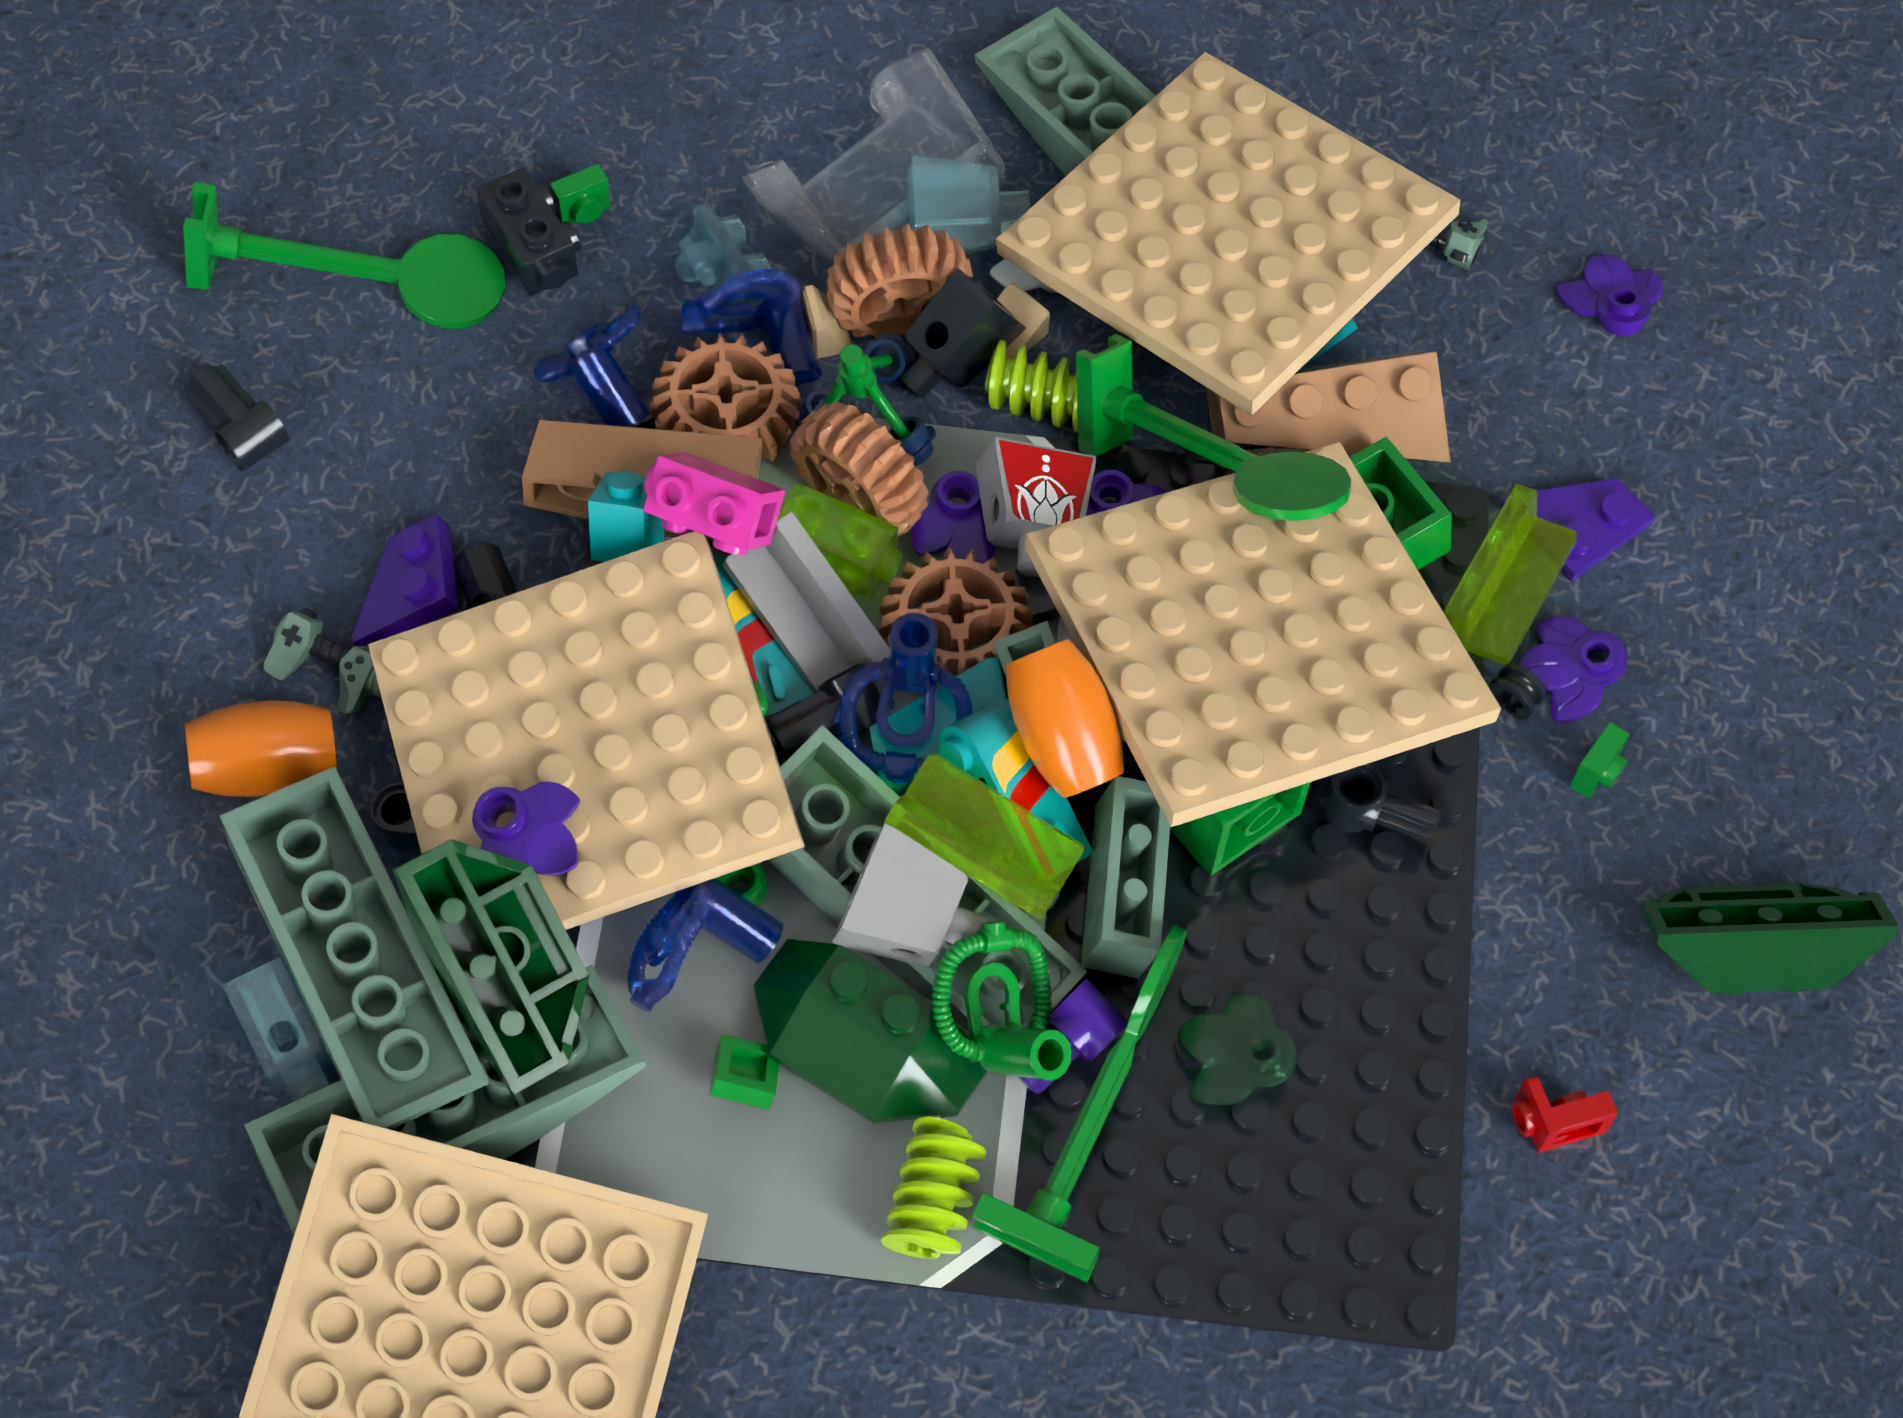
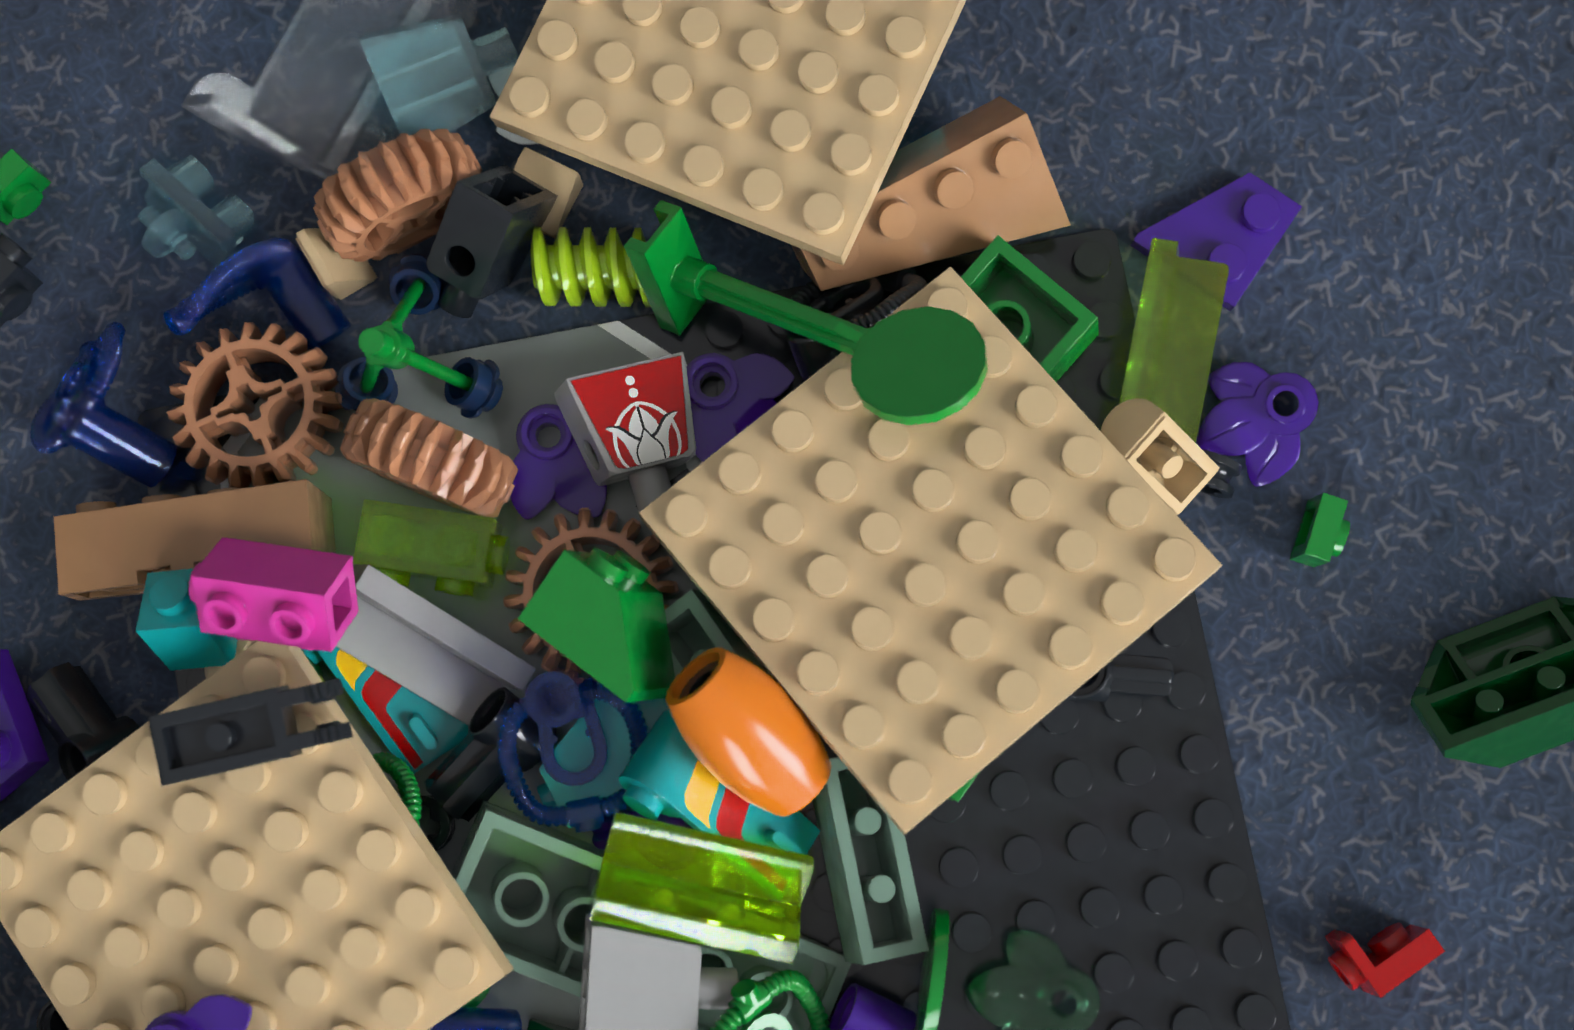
camera: 10 degrees left, 20 degrees up
(657, 584) = (240, 732): none -> black hinge
(971, 601) = (606, 622): none -> green slope
(1480, 630) = (1159, 451): none -> tan brick

